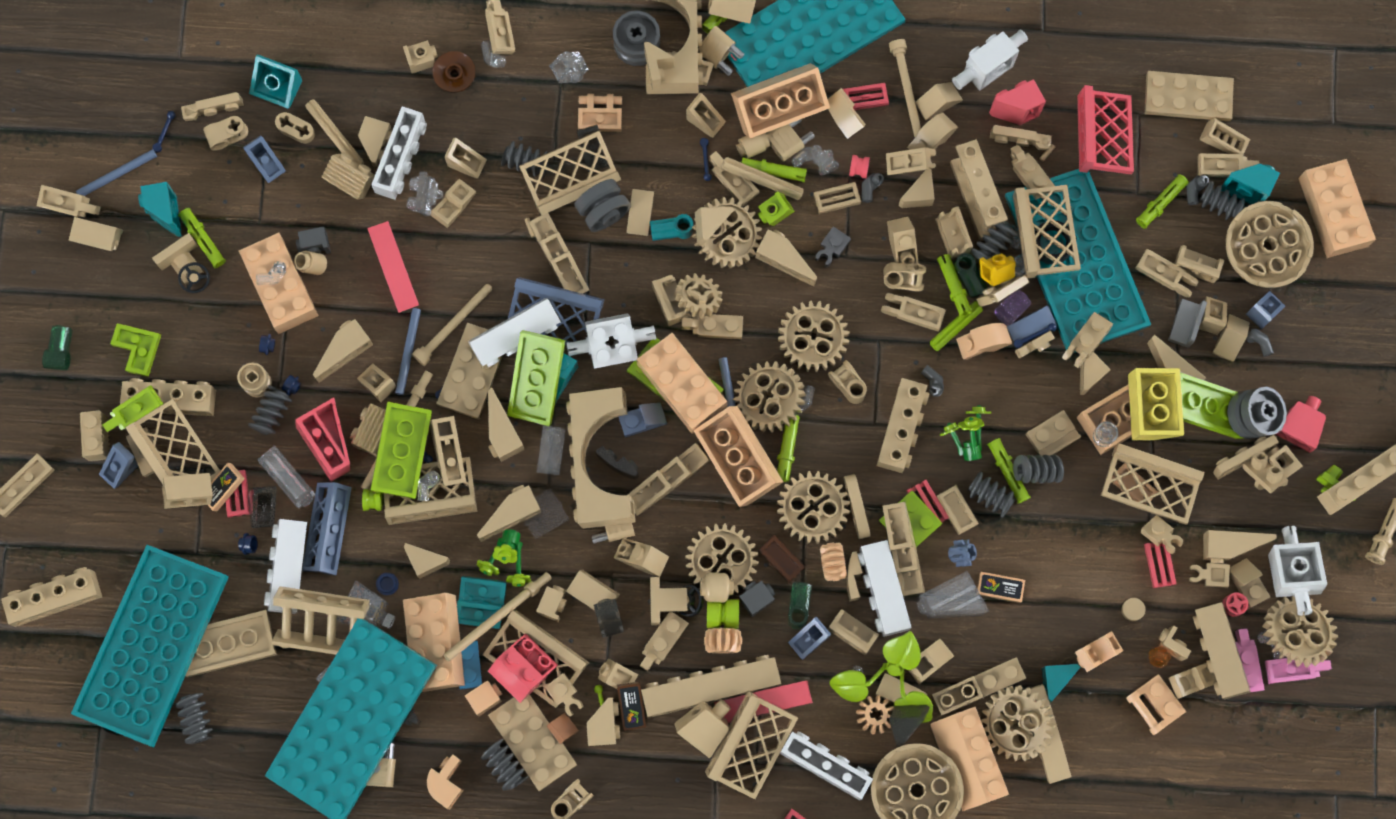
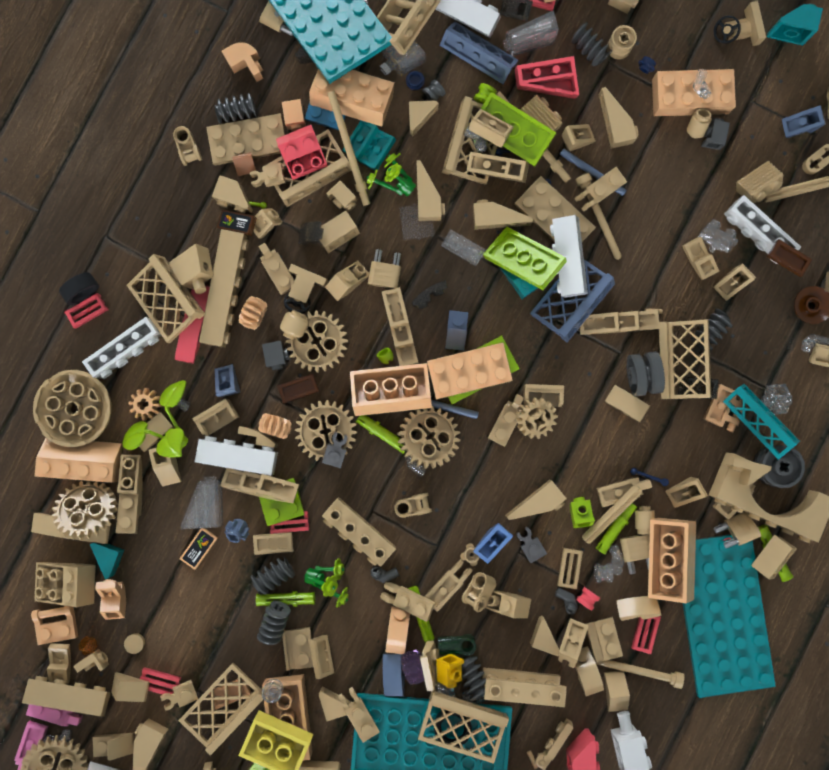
camera: 120 degrees right, 10 degrees up
(214, 255) = (765, 48): lime pin -> none
(291, 385) = (605, 70): dark blue plate -> none
(374, 138) = (784, 215): tan slope -> none
(392, 556) = (434, 91): none -> dark grey wheel
(393, 266) = (668, 187): coral slope -> none
(410, 473) = (490, 128): none -> tan slope
(419, 113) = (789, 258): none -> reddish brown tile
(424, 332) = (602, 188): none -> tan hinge
(588, 413) = (478, 287): tan arch -> none
(592, 69) = (766, 416): none -> teal fence
(599, 332) = (533, 342): white brick -> none
(669, 228) = (604, 420): teal piece -> none
(703, 481) = (385, 355): none -> lime hinge
(709, 220) = (592, 452): tan slope -> none
(723, 614) = (272, 324): lime wheel -> none
(738, 249) = (595, 461): tan gear -> none
(799, 603) = (256, 386): clear green piece -> none
(810, 355) = (477, 505): tan gear -> none
(832, 484) = (335, 452): none -> flat silver plate
(848, 284) = (492, 542): none -> medium blue slope
(856, 506) = (310, 465): tan beam -> none
(871, 295) = (466, 555): none -> tan plate
(893, 133) = (604, 640): none -> tan plate
(906, 720) = (125, 425): clear smoke slope -> none
(949, 342) = (408, 601): none -> tan hinge
(954, 233) = (497, 649): tan hinge -> none
(957, 294) = (453, 628): lime pin -> none
(1018, 343) = (383, 656): dark blue hinge -> none
(1029, 170) = (521, 737): tan hinge -> none
(1039, 343) = (376, 672): tan plate -> none
(1049, 406) = (321, 656): none -> tan plate
(1108, 713) = (65, 583): none -> tan slope
(1181, 591) = (129, 688): none -> tan slope
(1214, 575) = (130, 720): tan plate -> none
(1239, 602) = (95, 727): coral wheel -> none

